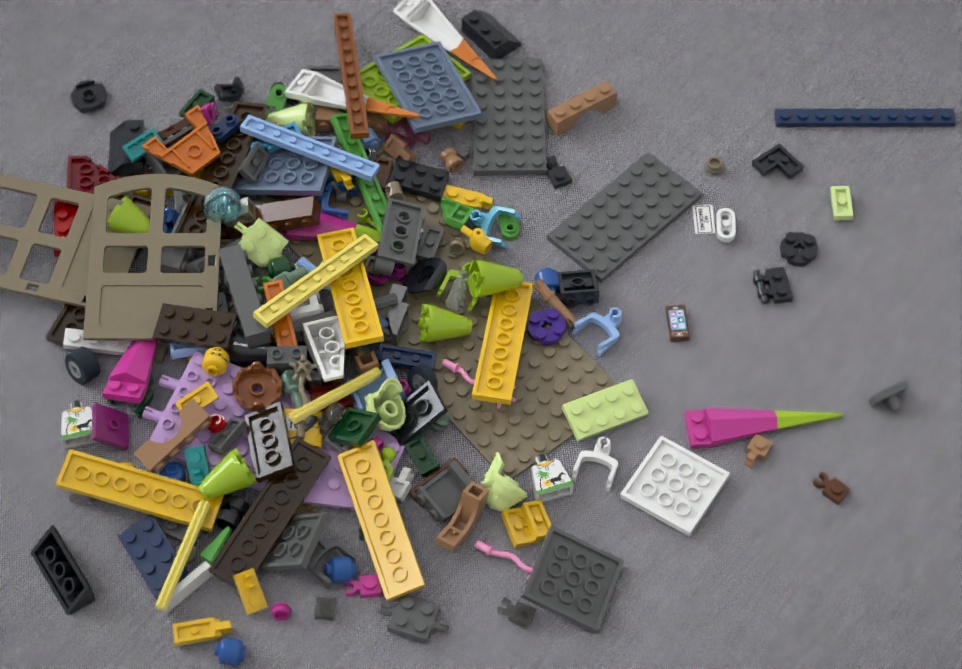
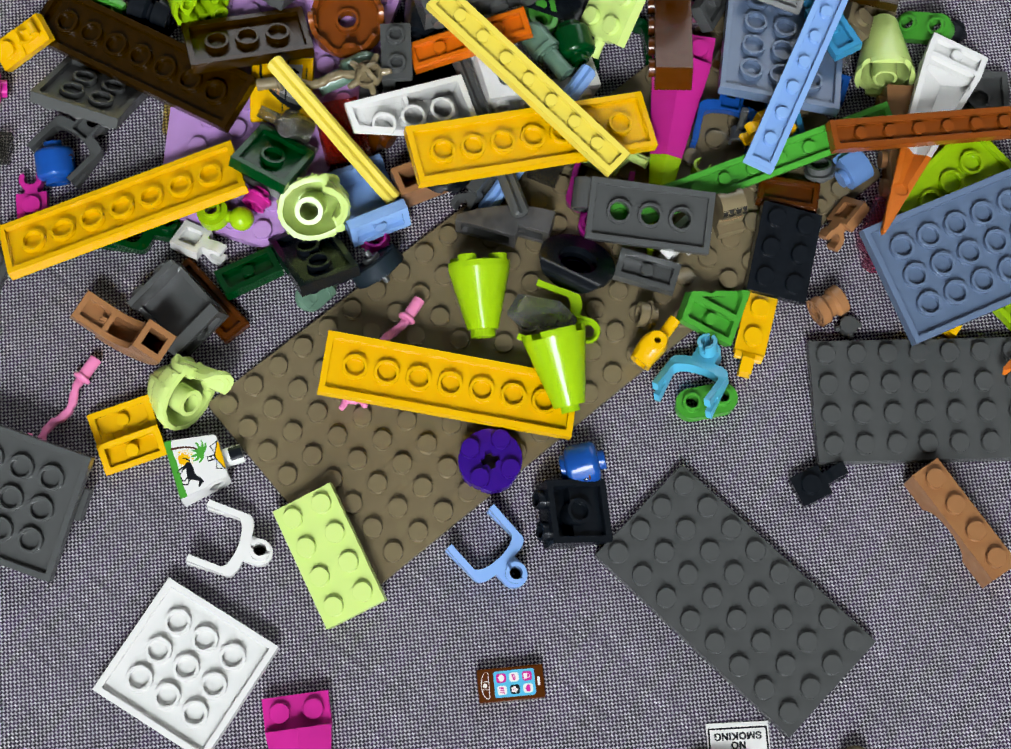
camera: 85 degrees right, 15 degrees up
(406, 357) = (423, 242): dark blue plate -> none
(550, 297) = (543, 464): medium nougat pin -> none

